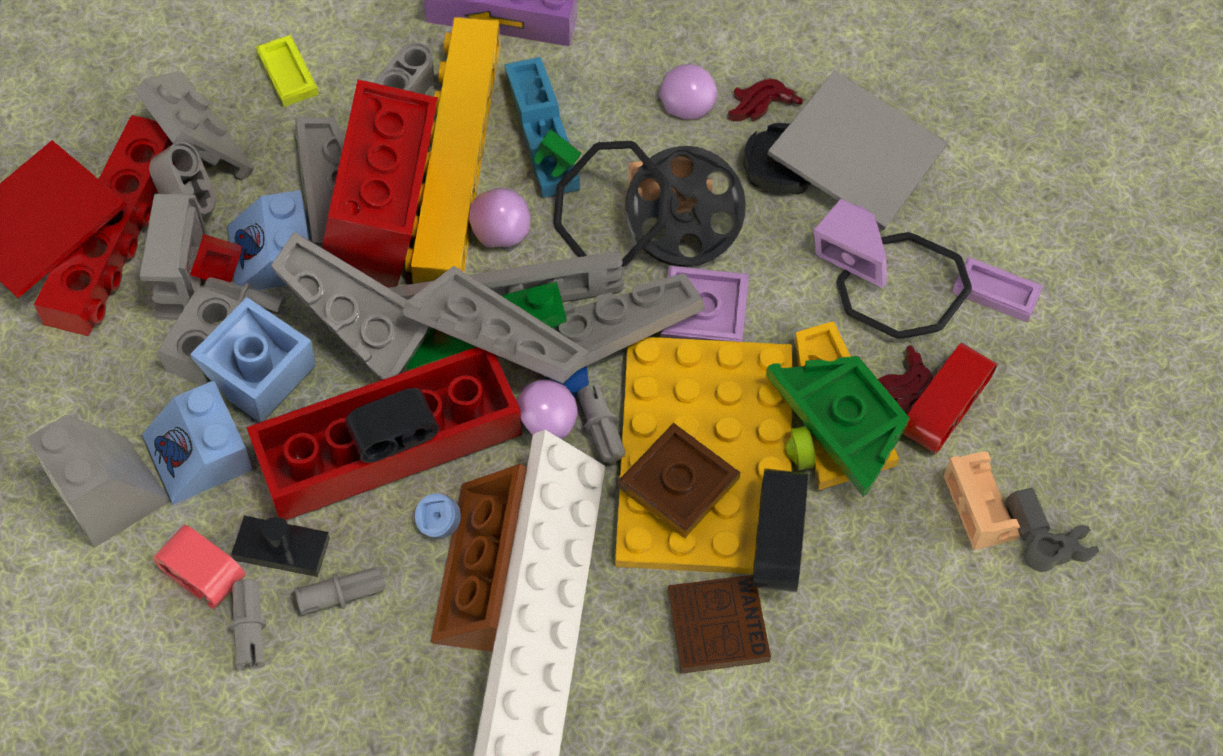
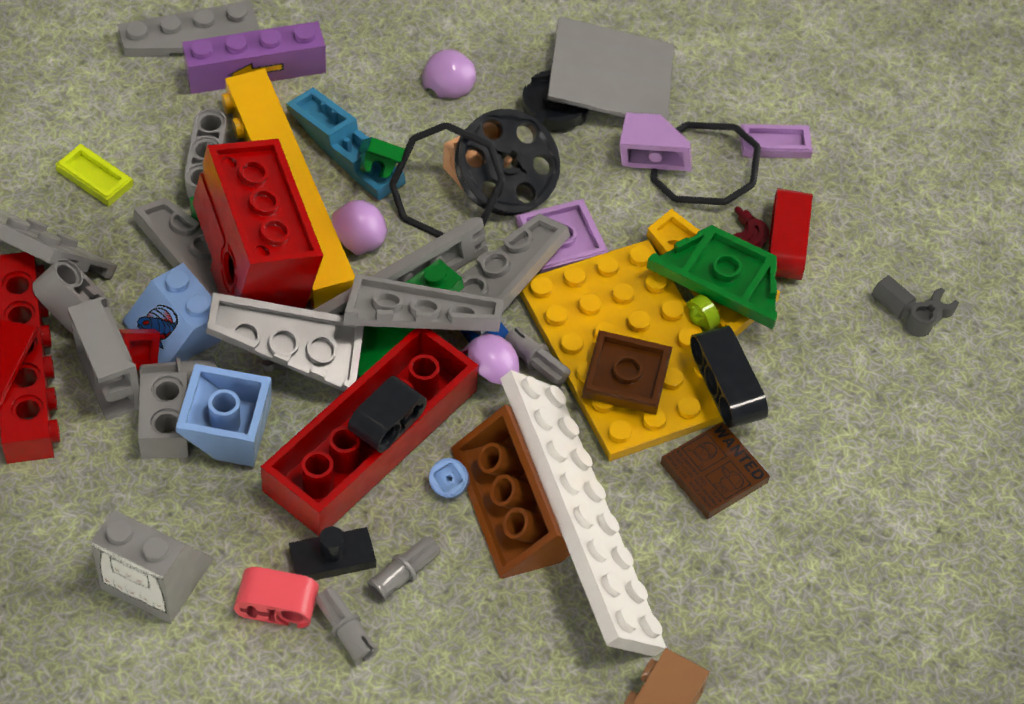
camera: 30 degrees left, 5 degrees down
(196, 443) = (213, 501): light blue slope -> none
(758, 97) = (507, 60): dark red piece -> none
(979, 501) = (853, 303): light nougat hinge -> none

